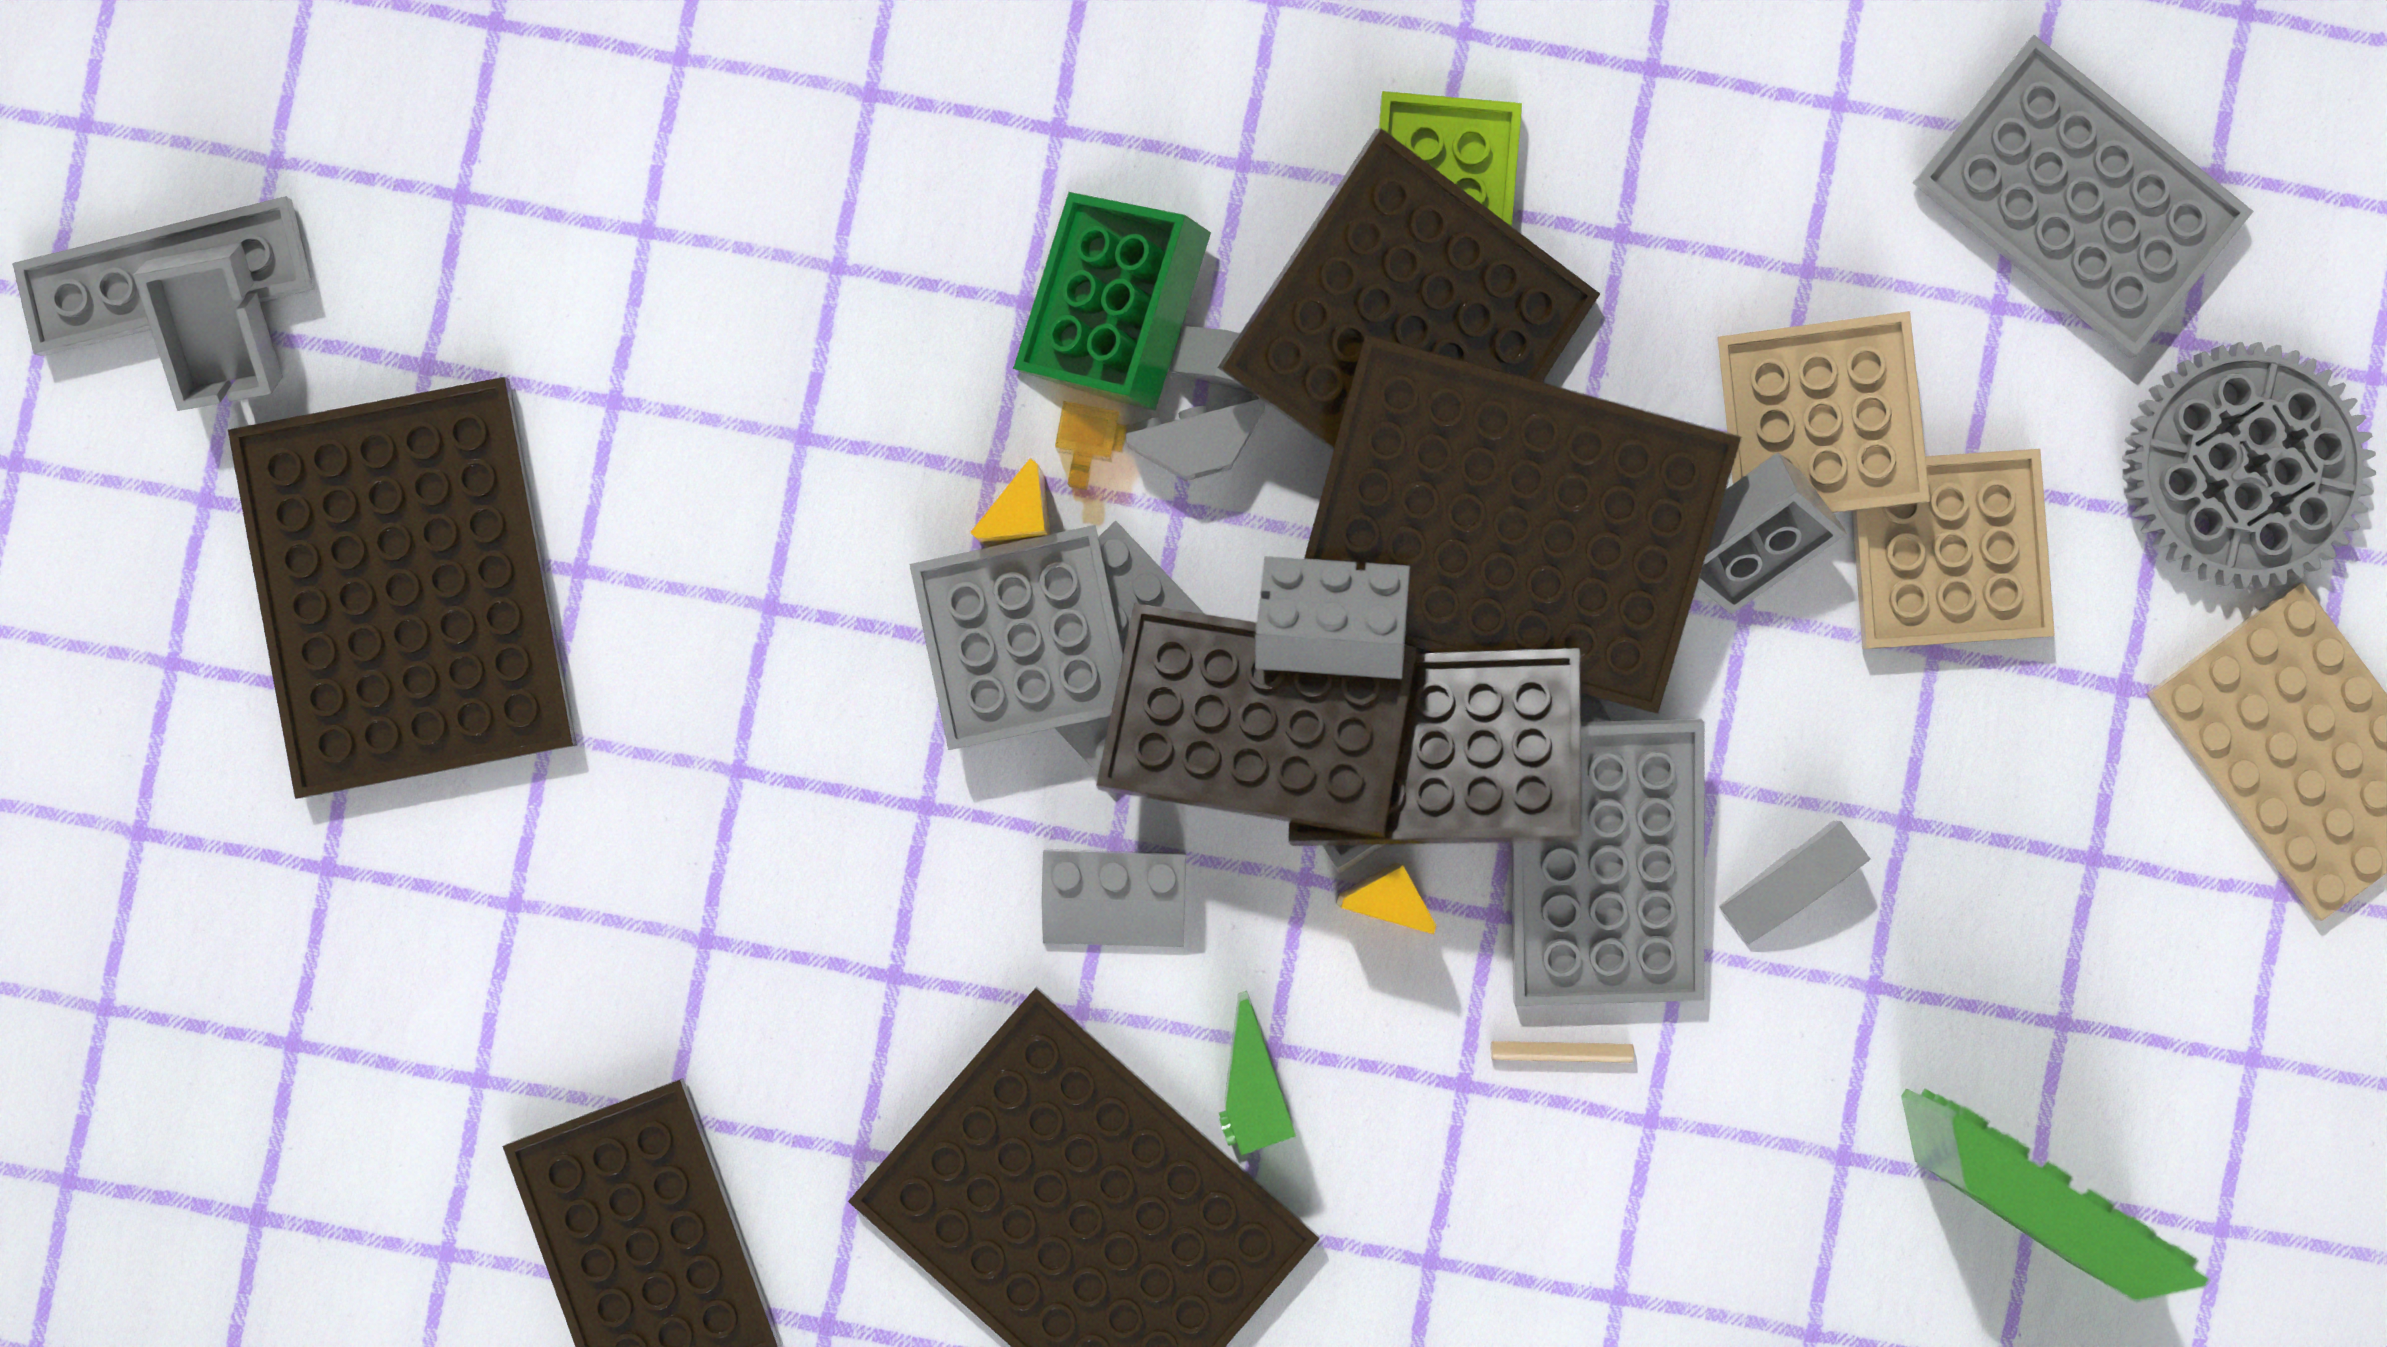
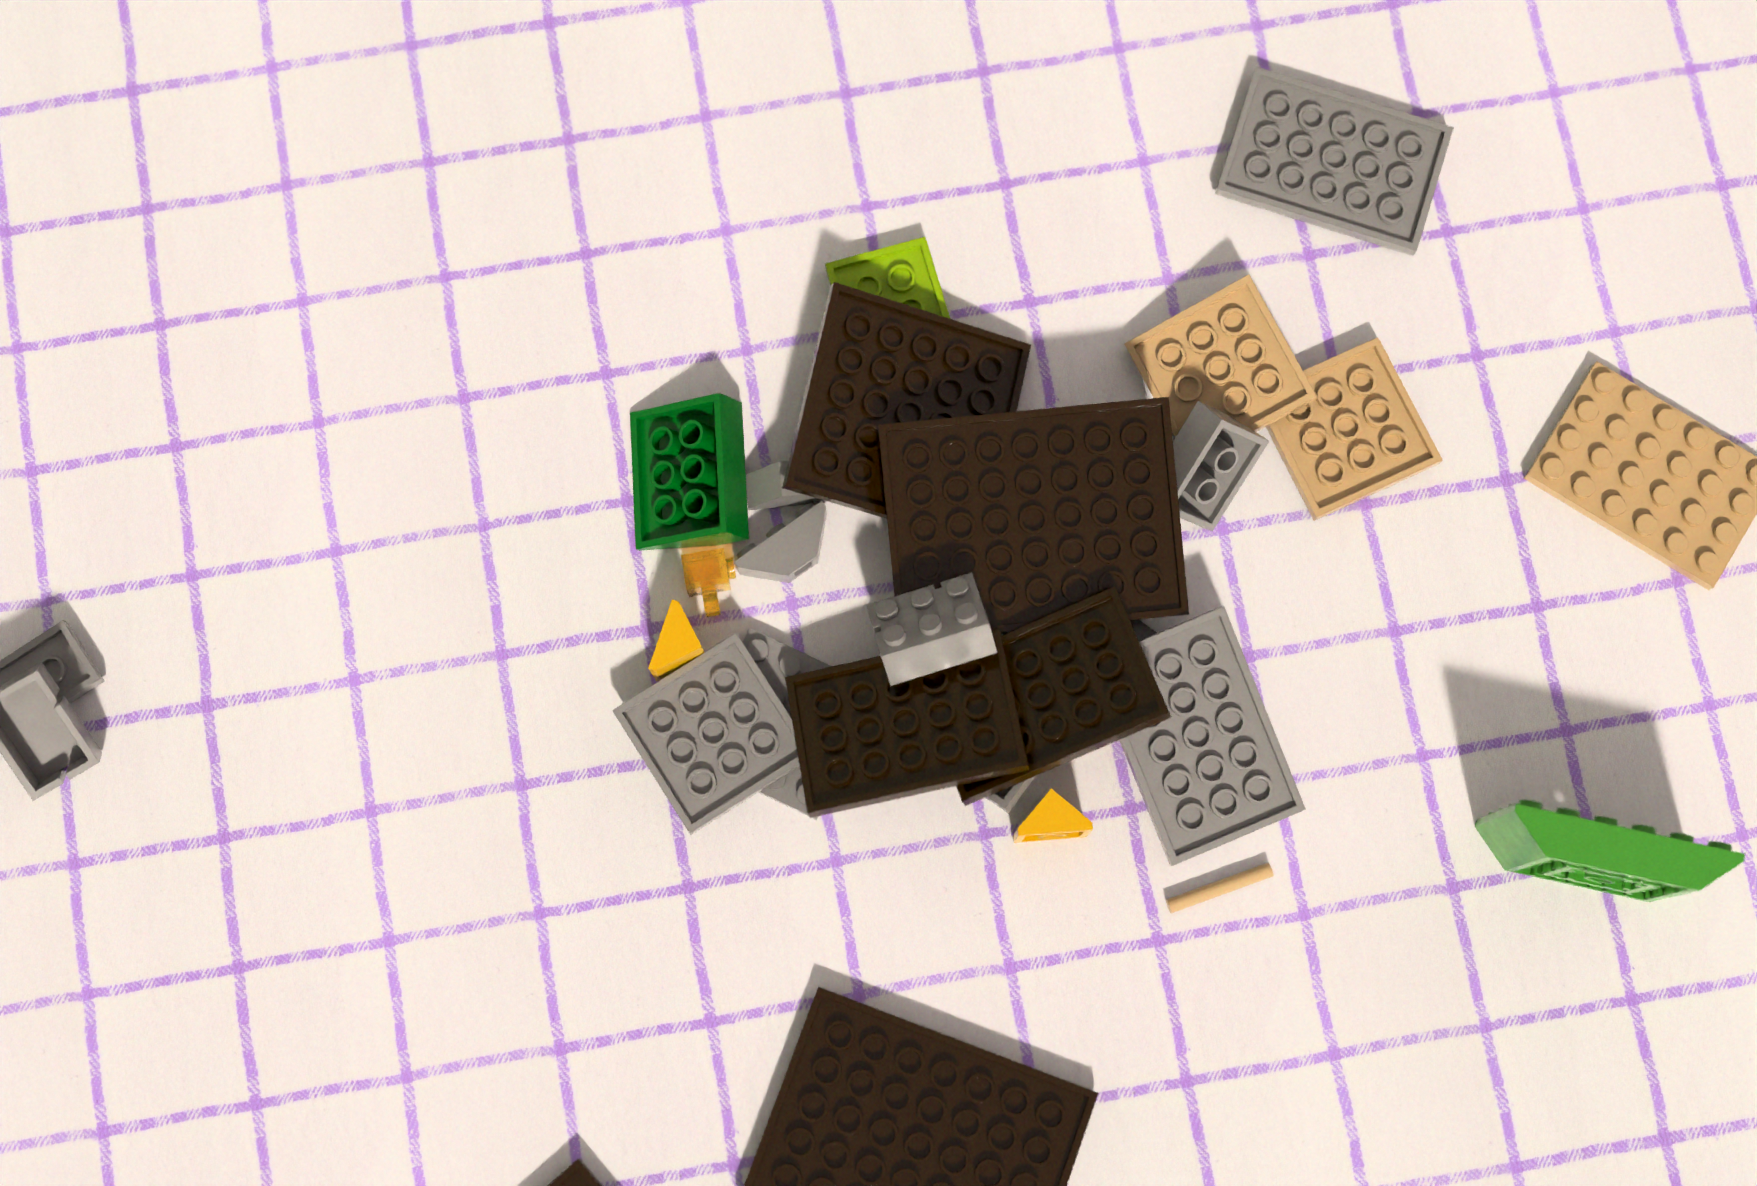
camera: 25 degrees left, 10 degrees down
(402, 587) = (243, 873): dark brown plate -> none
(1113, 897) = (851, 899): light grey slope -> none
(1253, 1098) = (1006, 998): bright green slope -> none
(1795, 881) = (1334, 700): light grey slope -> none
(2233, 540) = (1513, 239): light grey gear -> none

